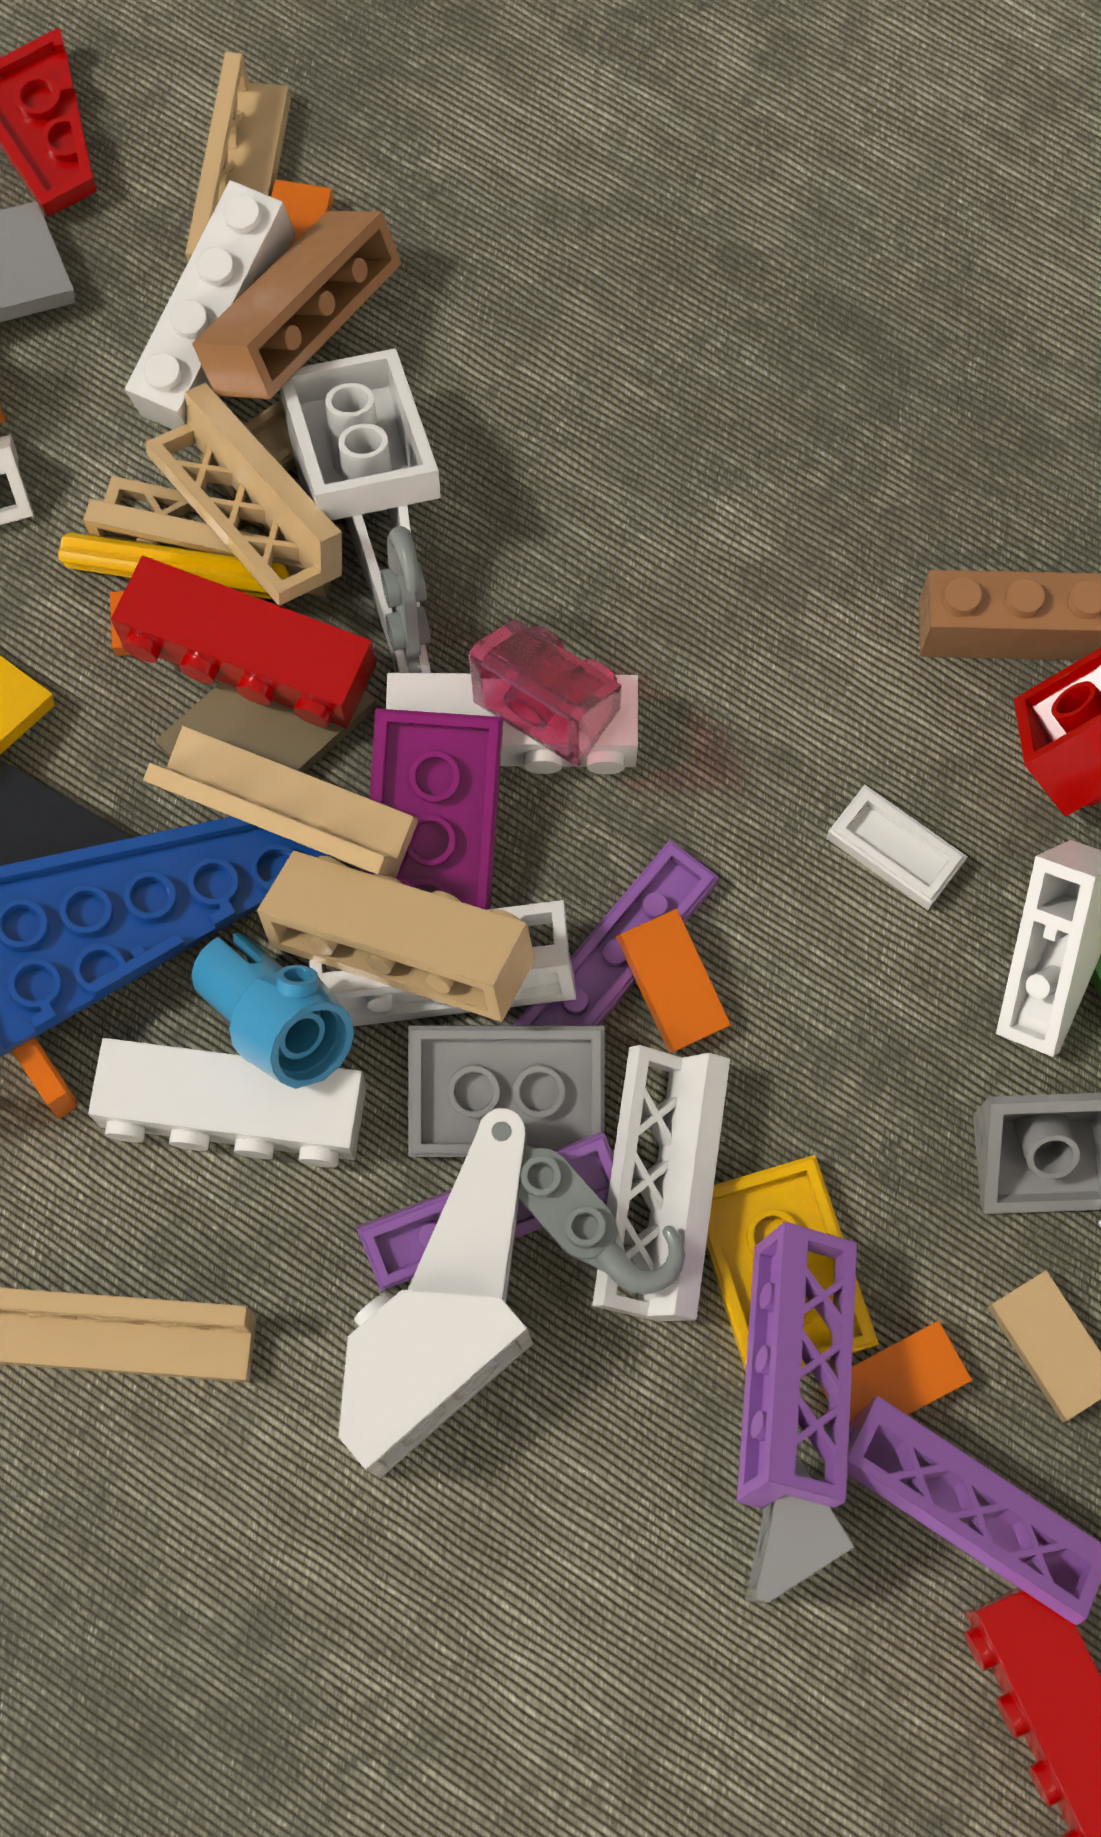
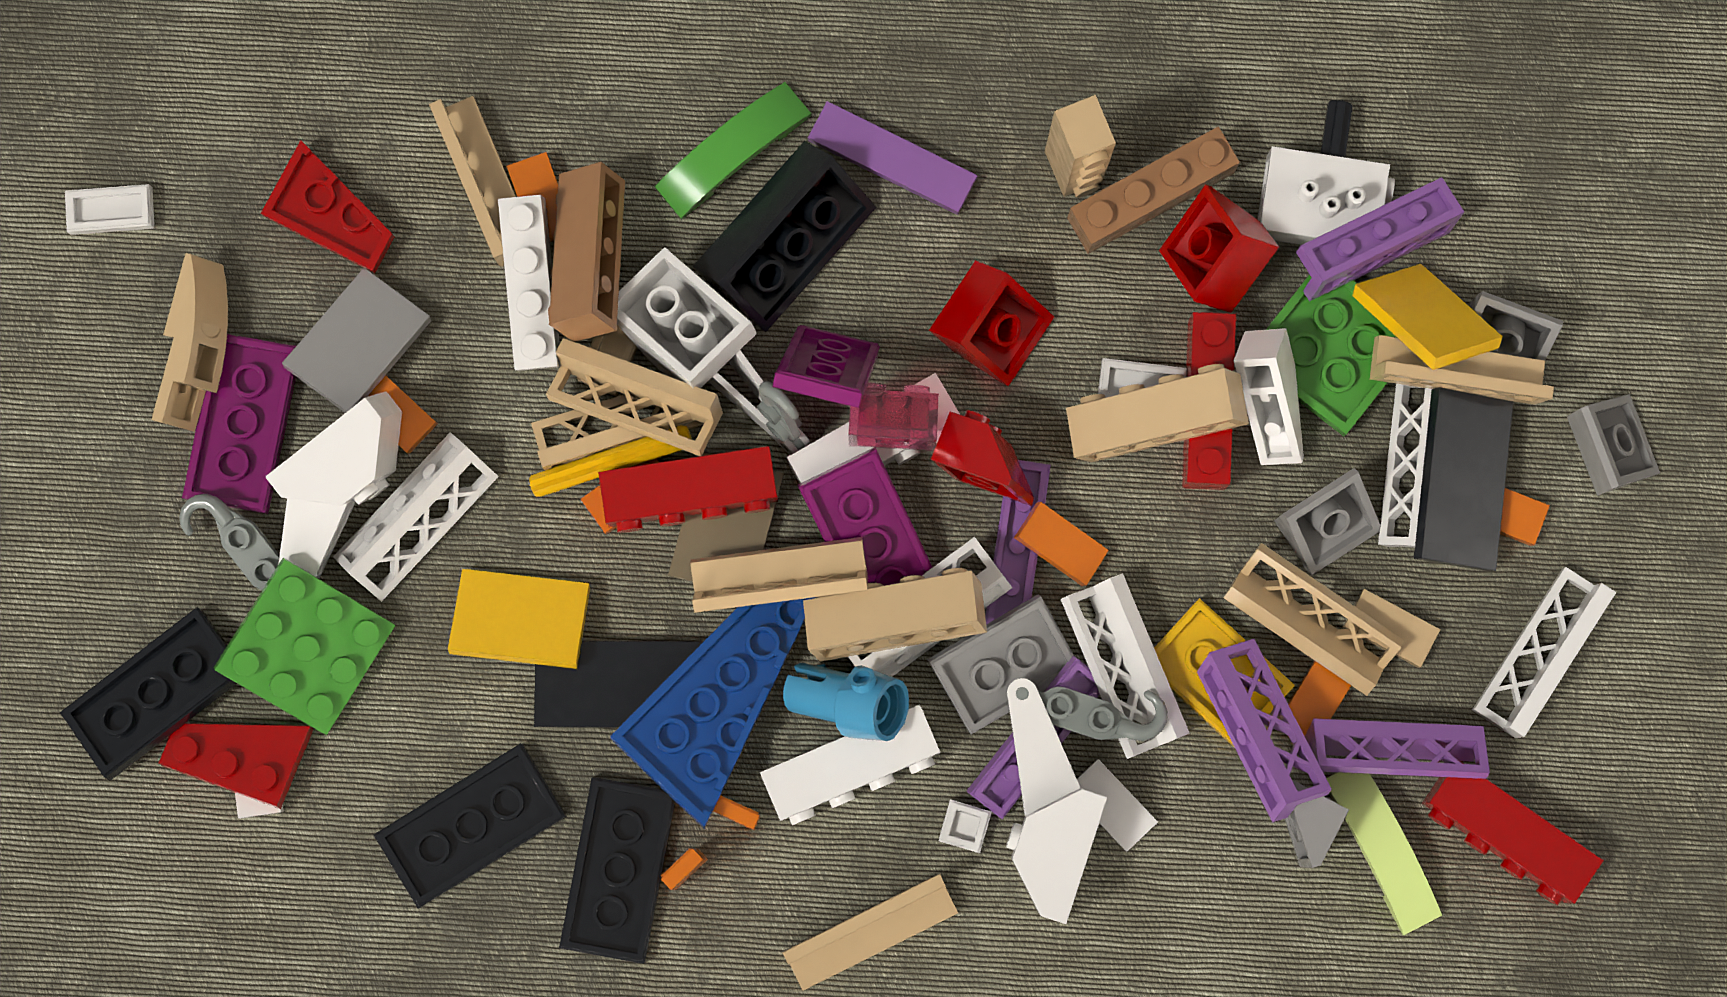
camera: 30 degrees left, 10 degrees up
(327, 1272) = (964, 826): none -> white tile
(499, 575) = (827, 366): none -> magenta tile
(543, 1373) = (1123, 814): none -> white tile
(550, 295) = (731, 148): none -> bright green slope
(555, 428) = (785, 235): none -> black slope
(630, 804) = (981, 457): none -> red slope
(742, 415) = (892, 158): none -> medium lavender tile
(749, 663) = (992, 322): none -> red slope
(877, 1646) = (1385, 850): none -> yellowish green slope
(896, 877) = (1157, 414): none -> tan brick
(936, 1280) = (1334, 648): none -> tan fence
(971, 909) = (1209, 456): none -> red brick
(986, 481) = (1079, 147): none -> tan brick

